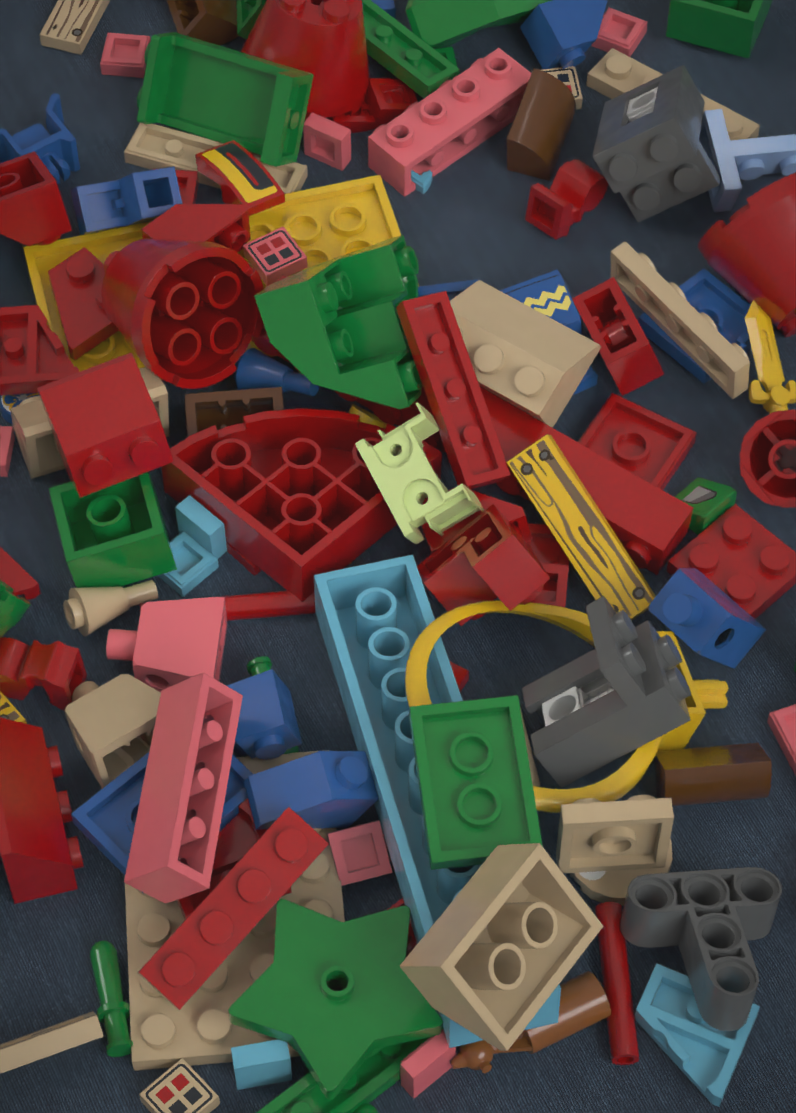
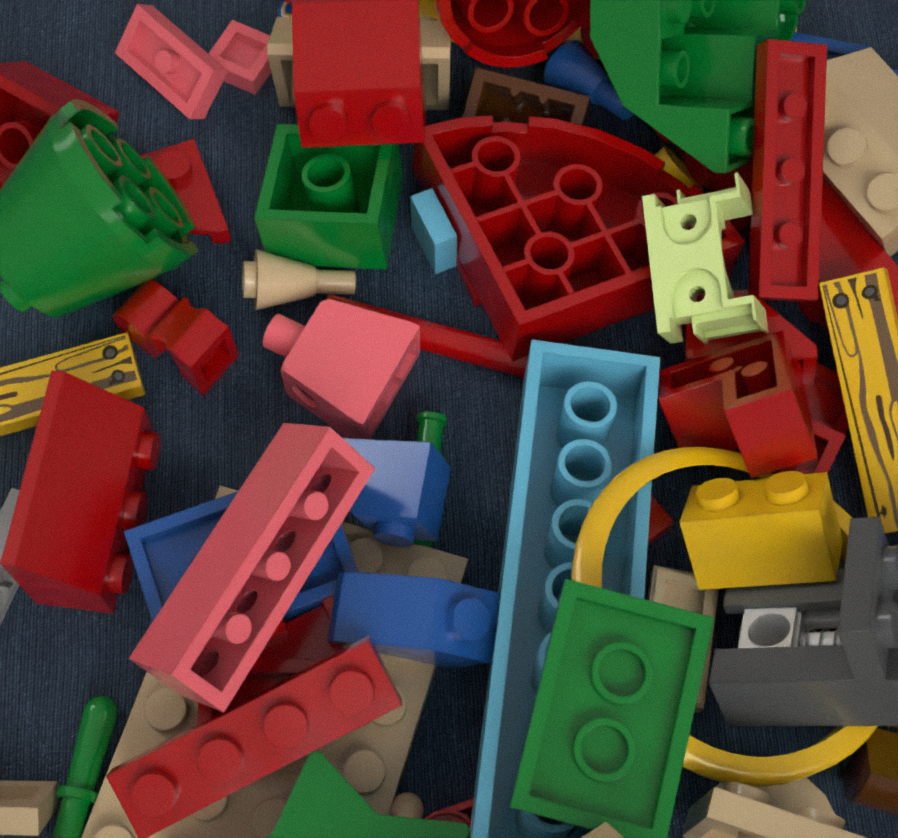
camera: 20 degrees right, 10 degrees up
(113, 724) = (224, 433): tan torso -> none
(192, 564) = (407, 268): medium azure tile -> none
(359, 852) = (448, 708): coral tile -> none
(532, 644) = (762, 531): none -> yellow brick

